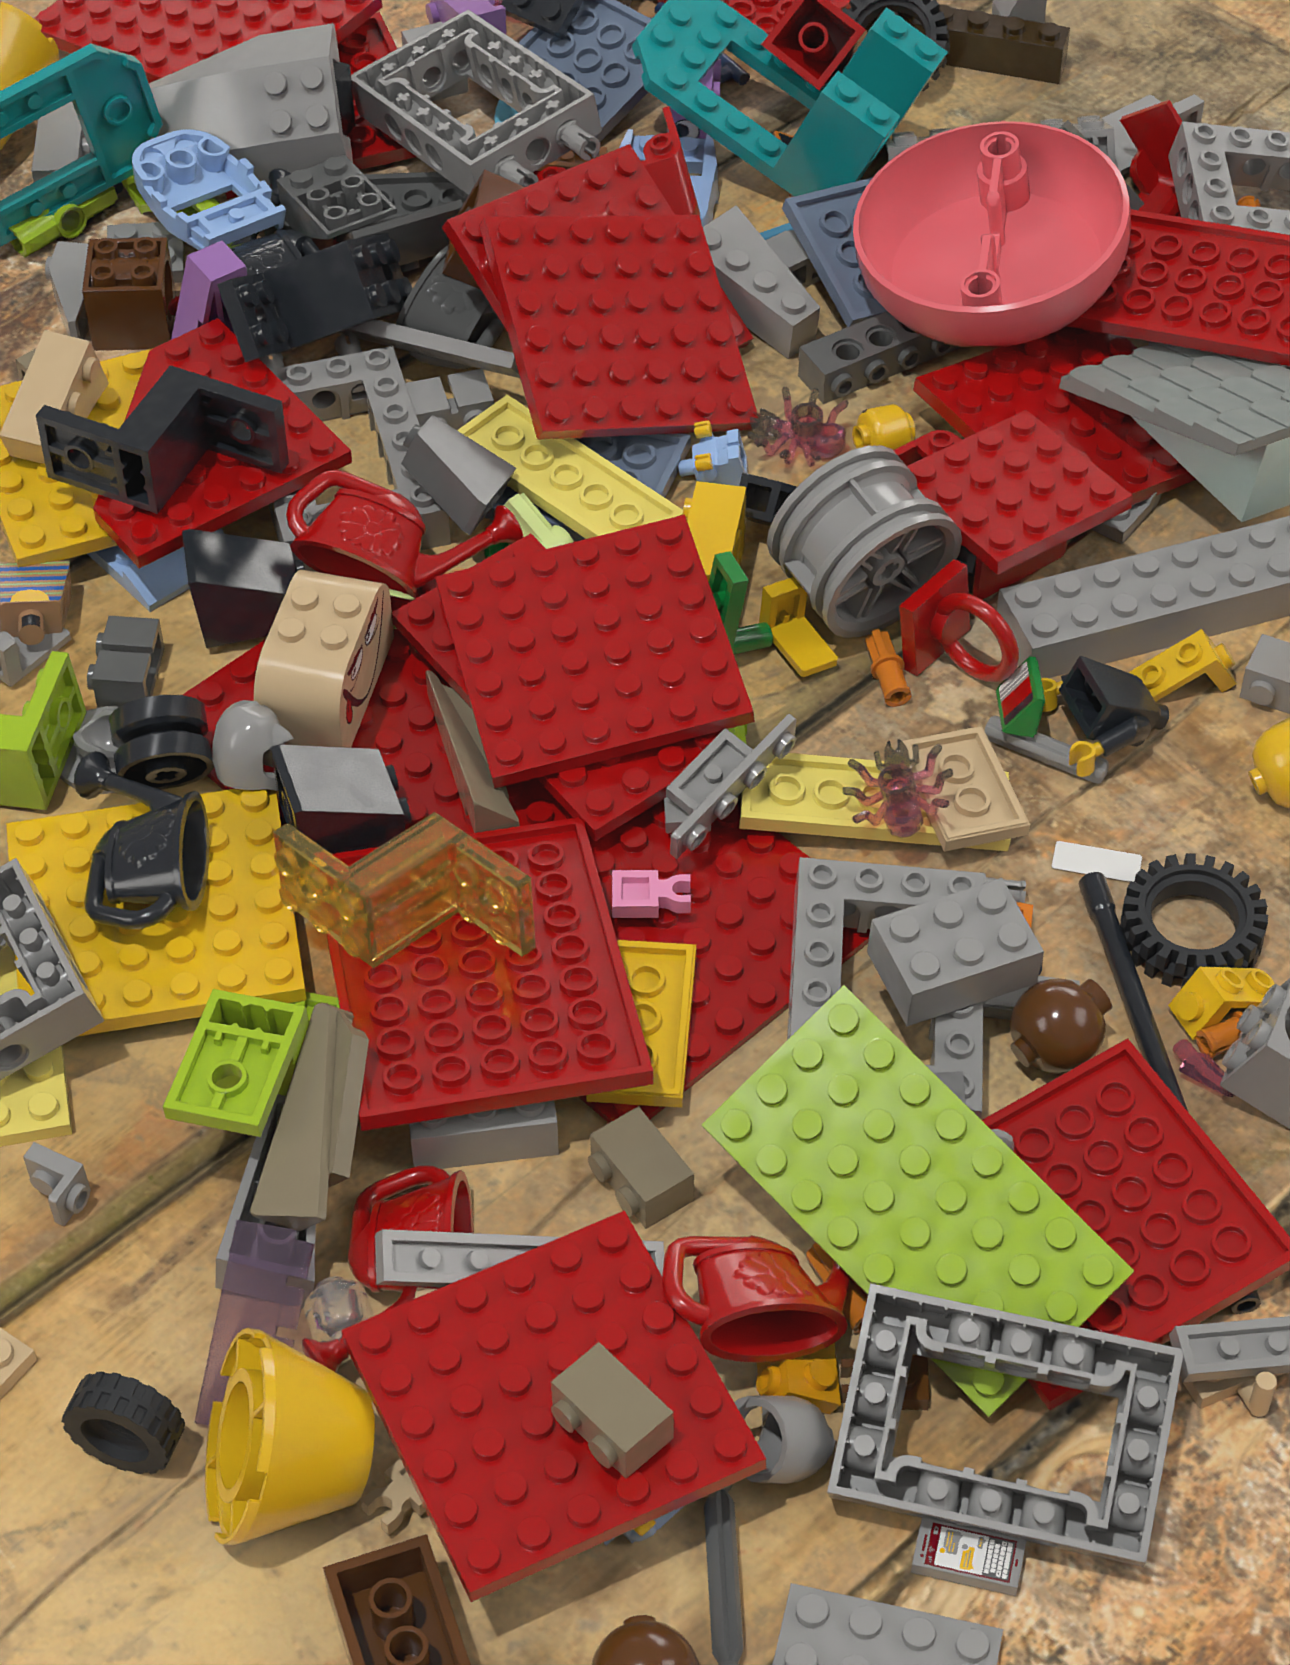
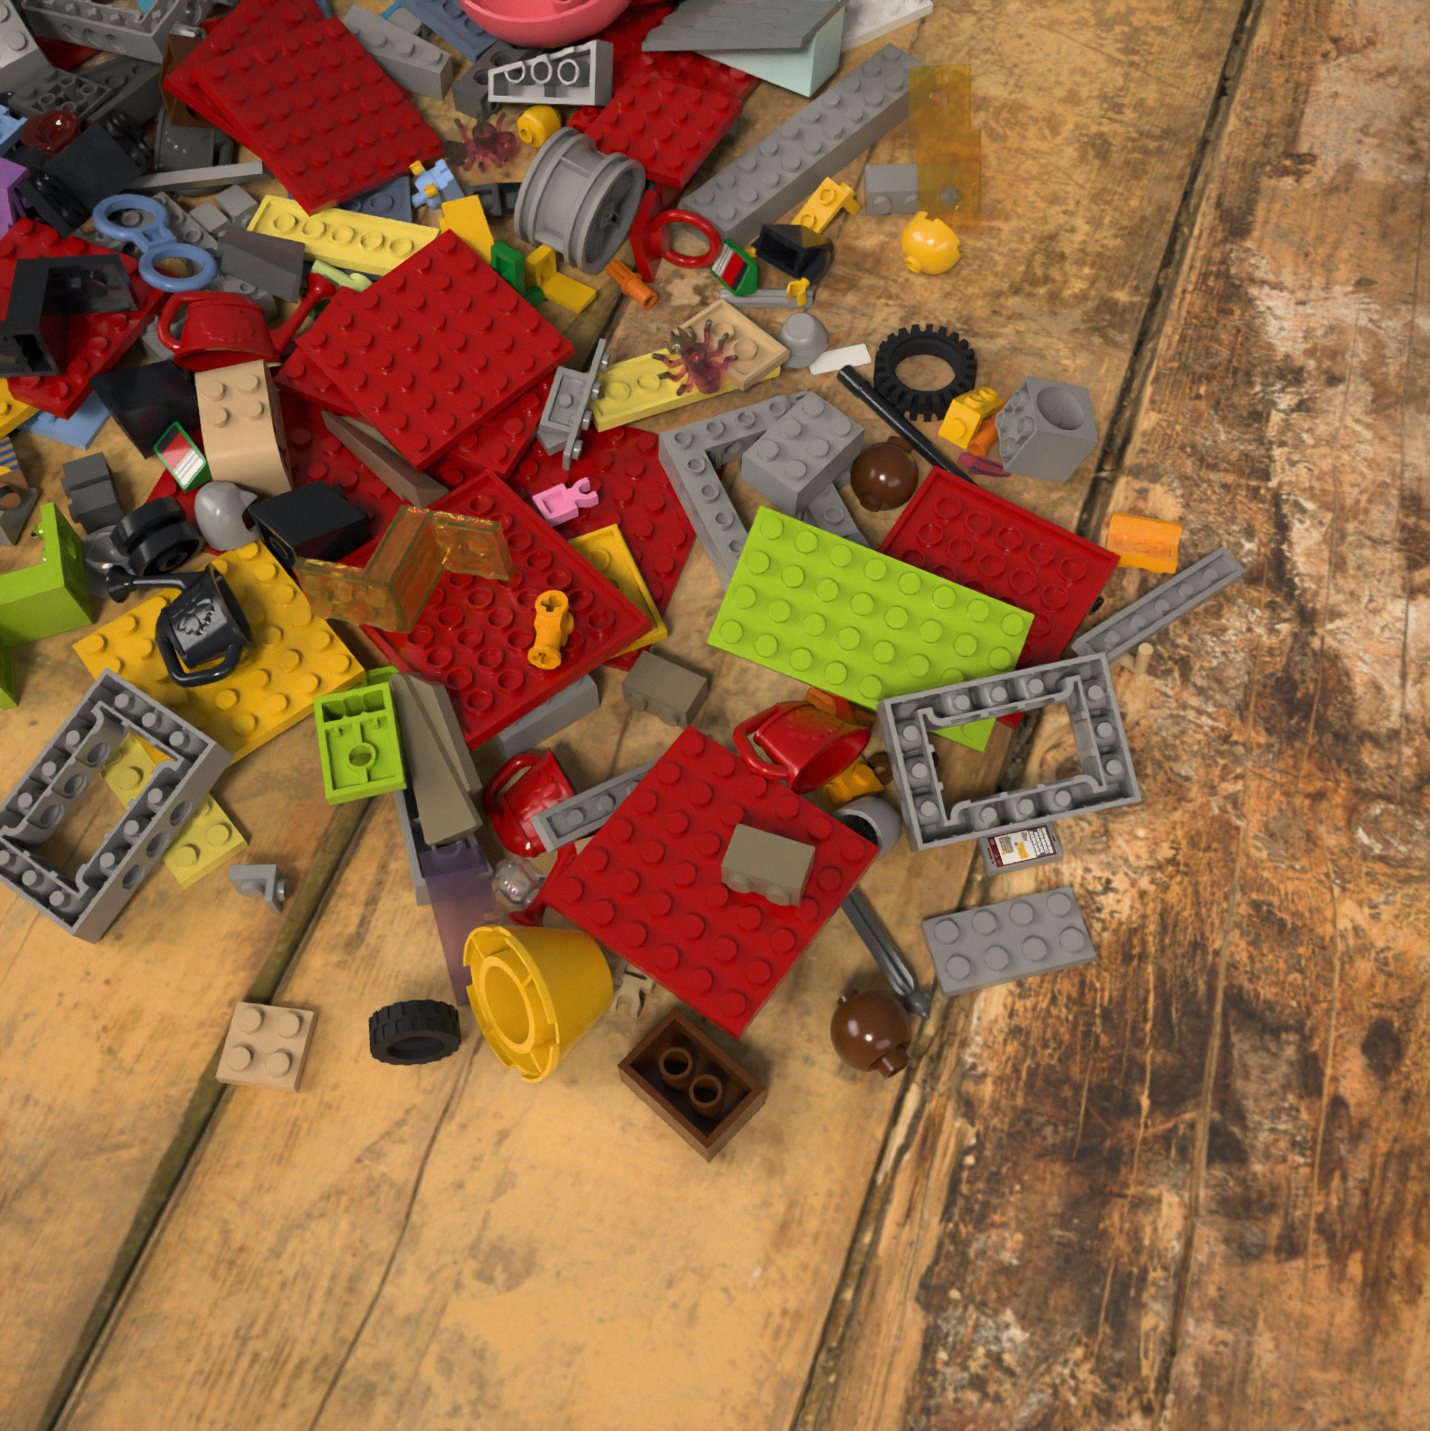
camera: 25 degrees left, 10 degrees up
(240, 658) = (182, 458): none -> slope
(298, 233) = (51, 131): none -> clear red hat
(344, 404) = (155, 243): none -> medium blue bar
(531, 1029) = (552, 627): none -> light orange connector
(932, 386) = (562, 78): none -> light grey wedge
(1061, 819) = (804, 338): none -> light grey hat

